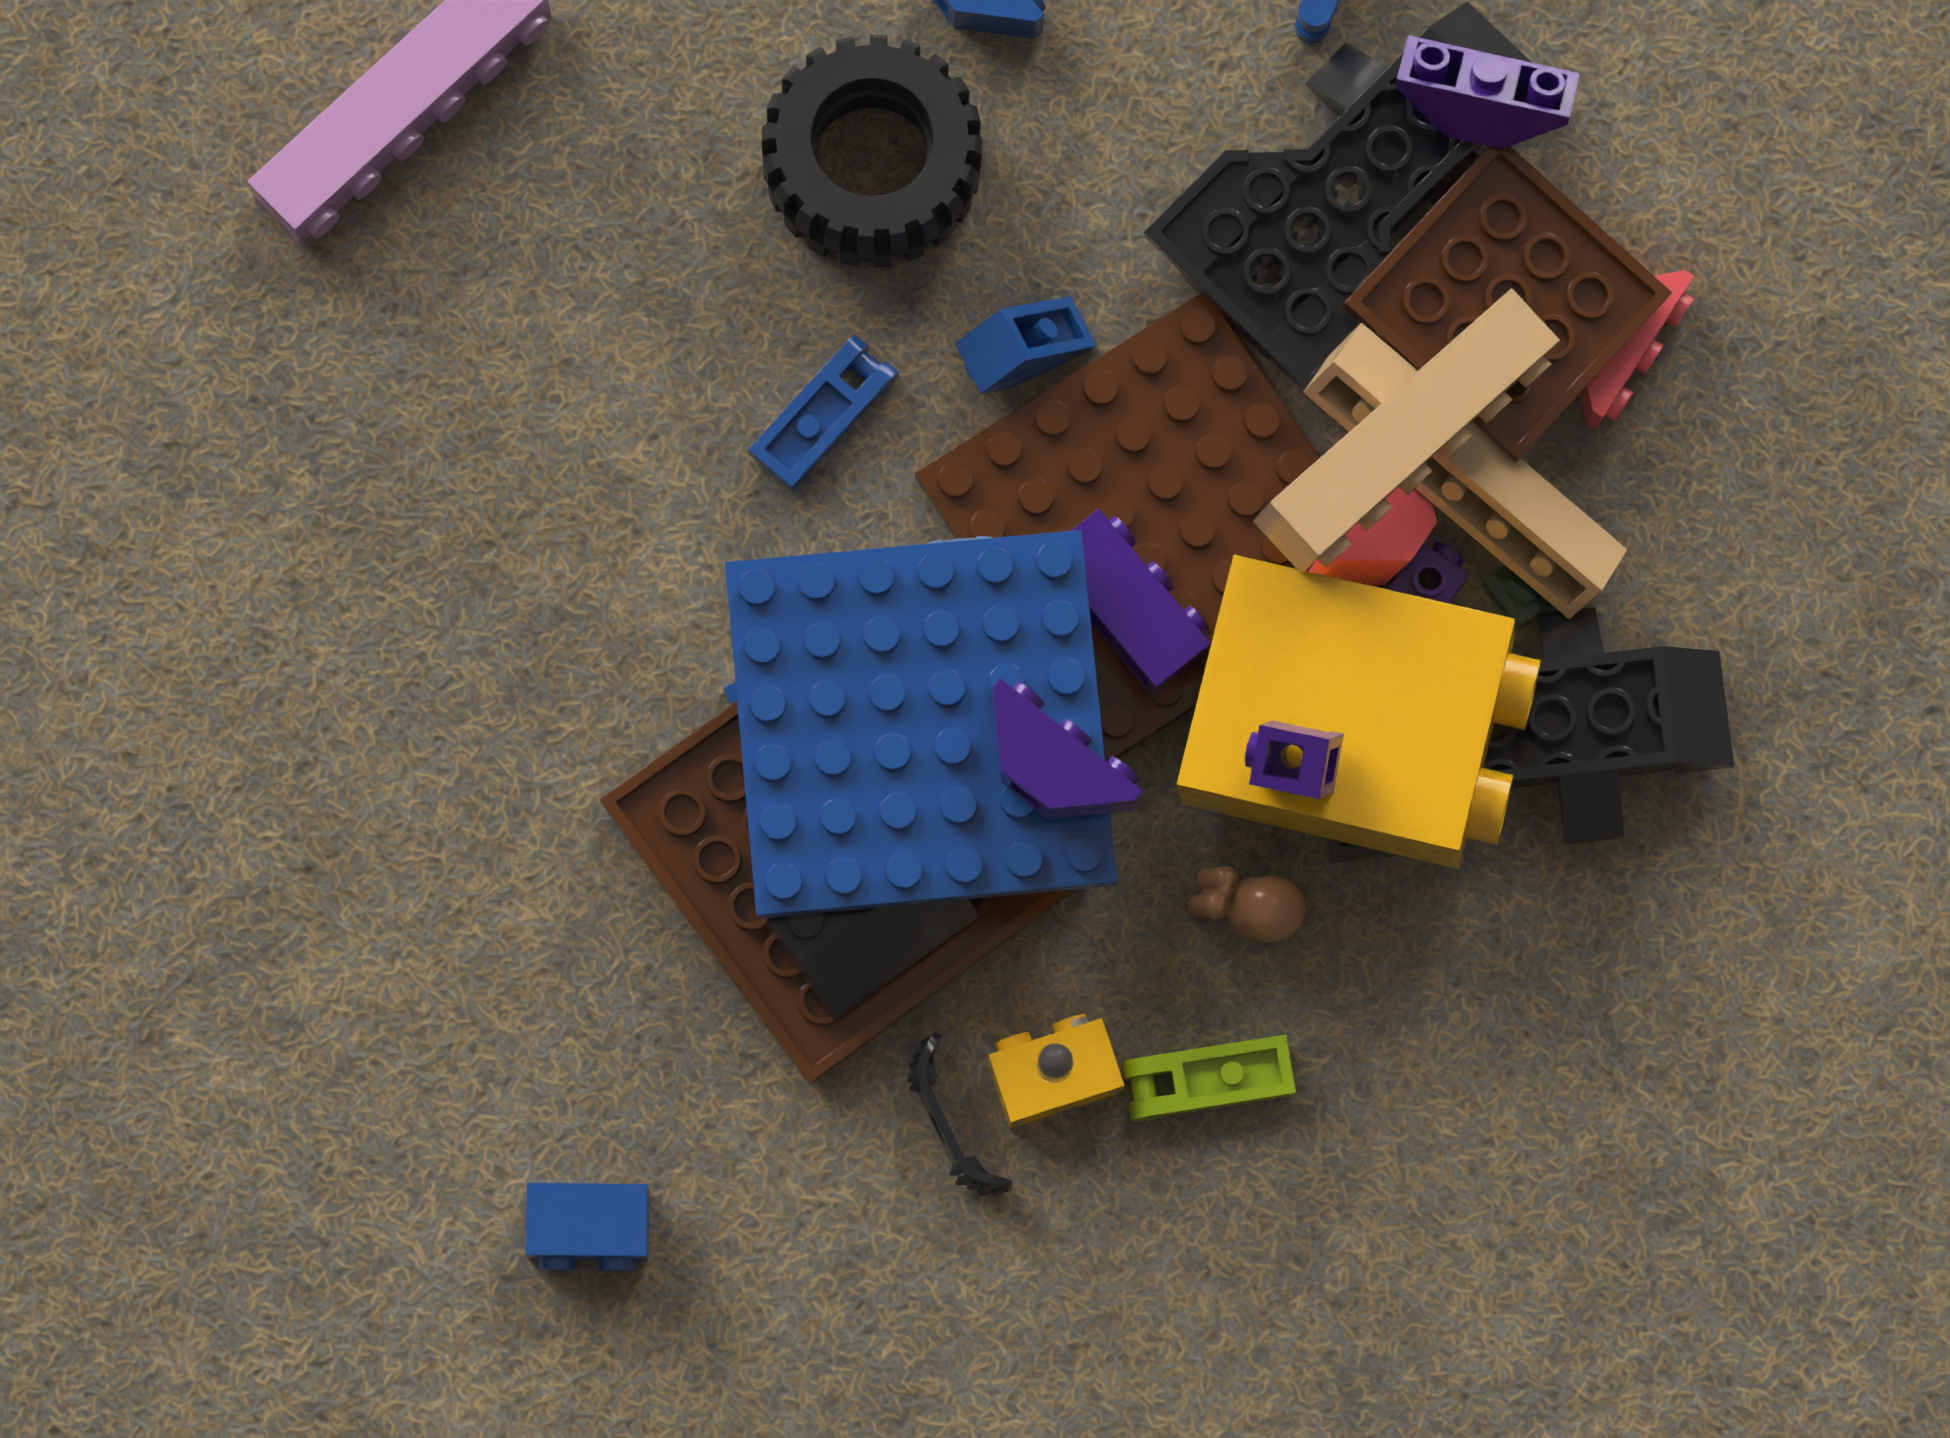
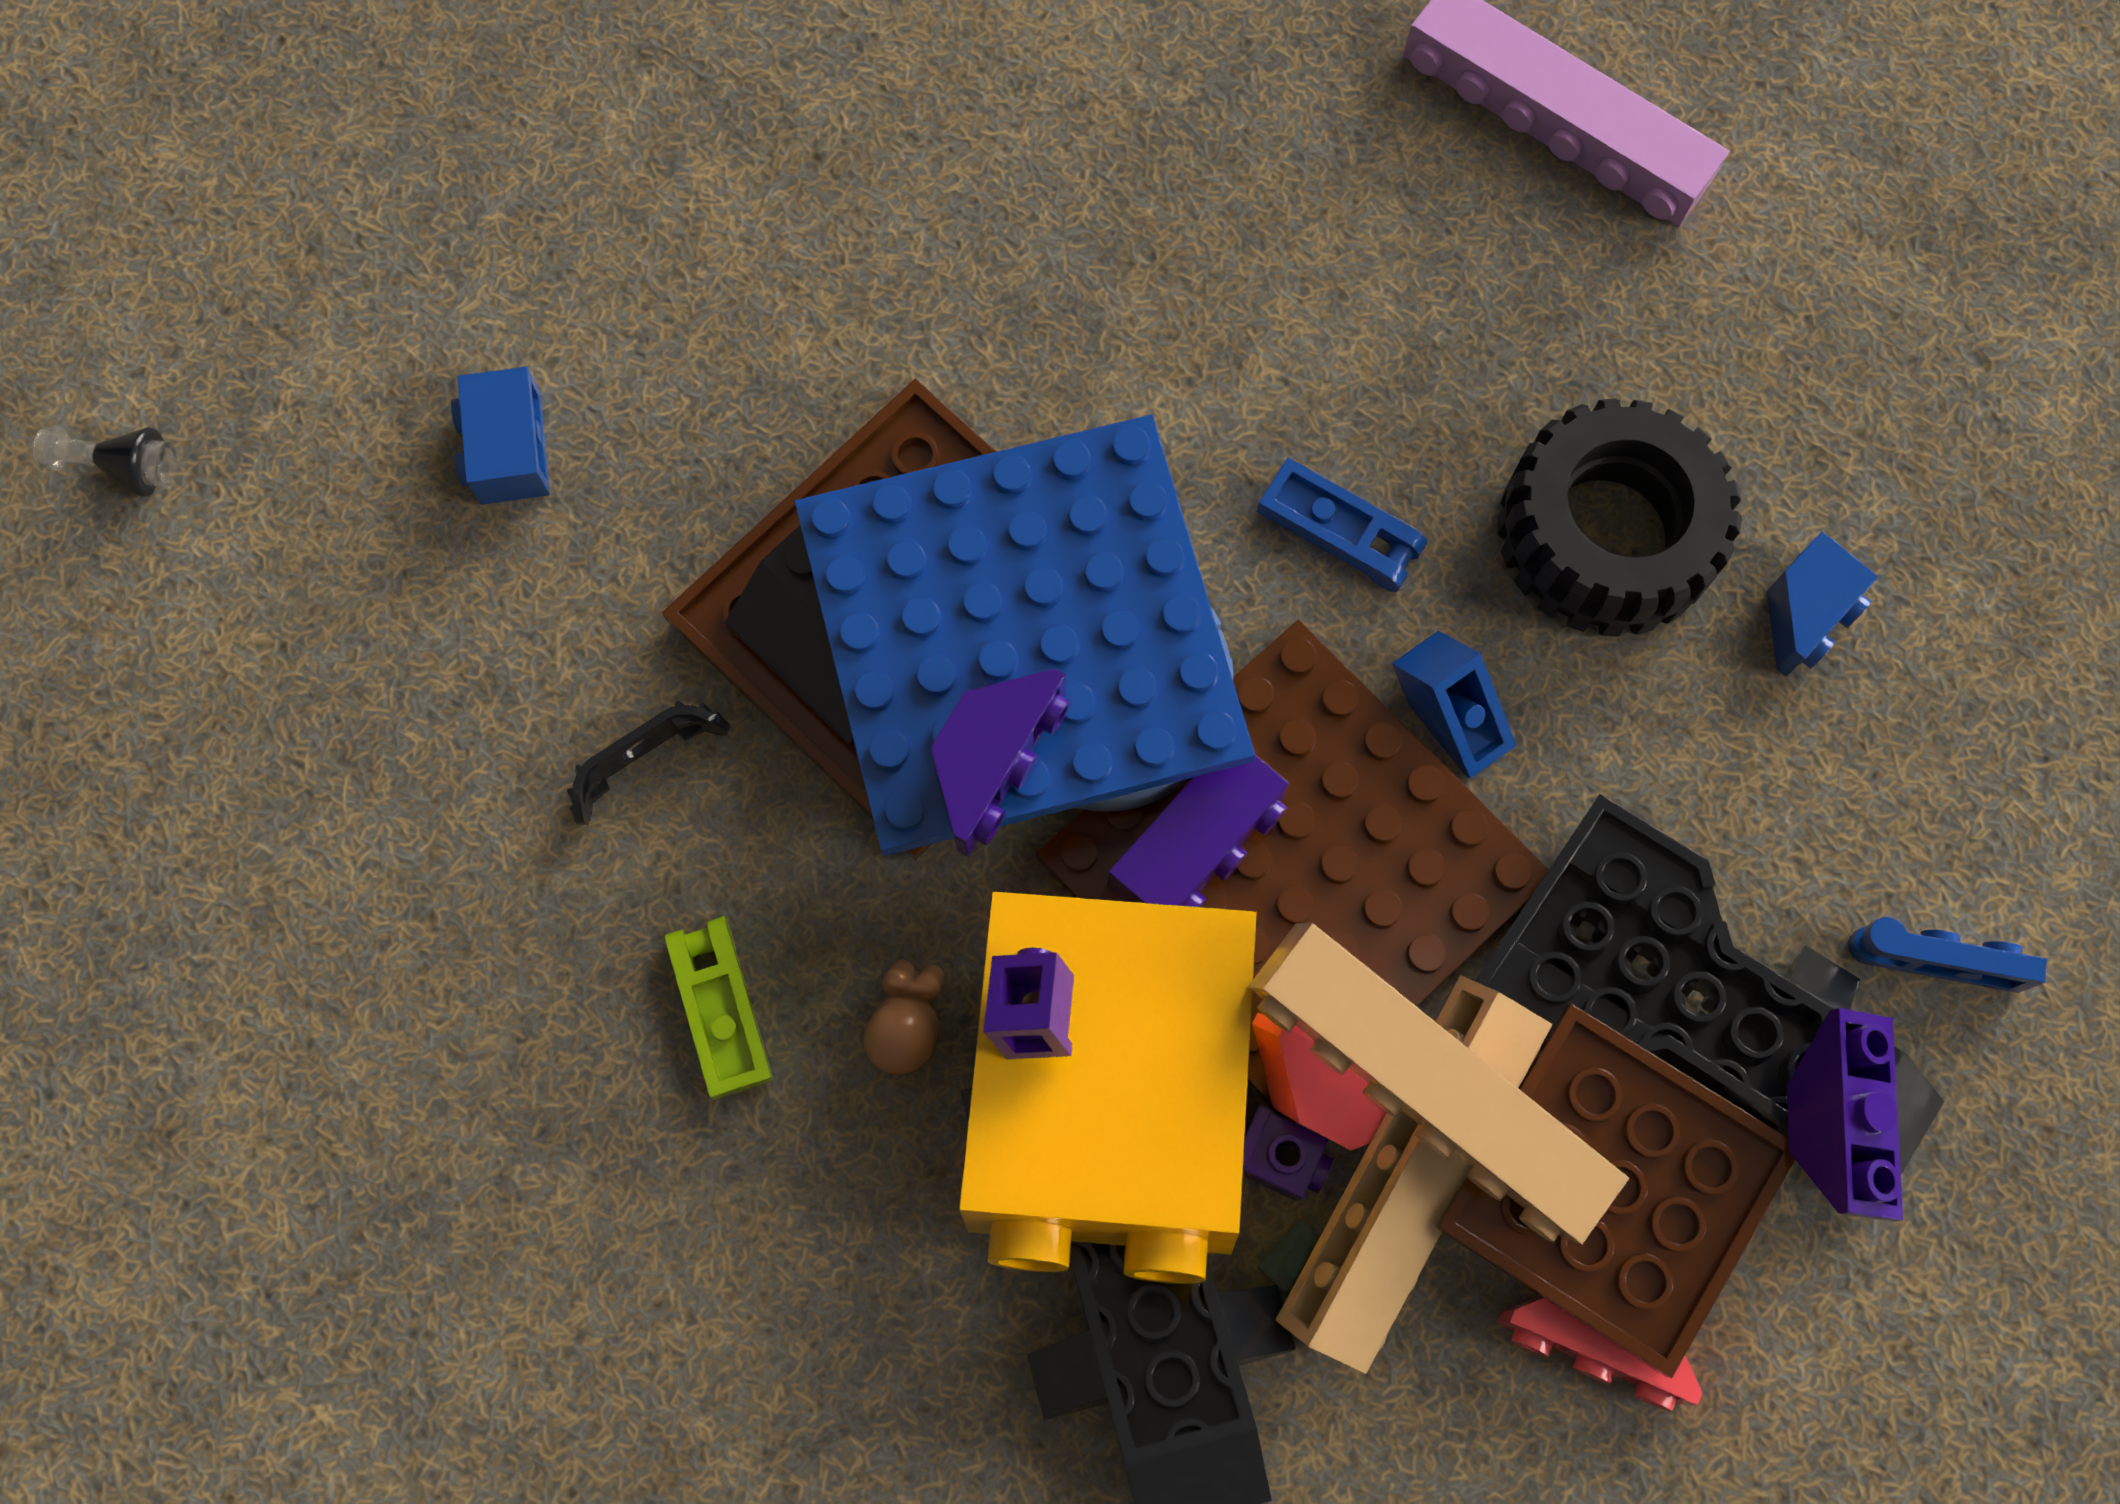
camera: 85 degrees right, 5 degrees down
(1054, 1070) = (702, 847): yellow piece -> none

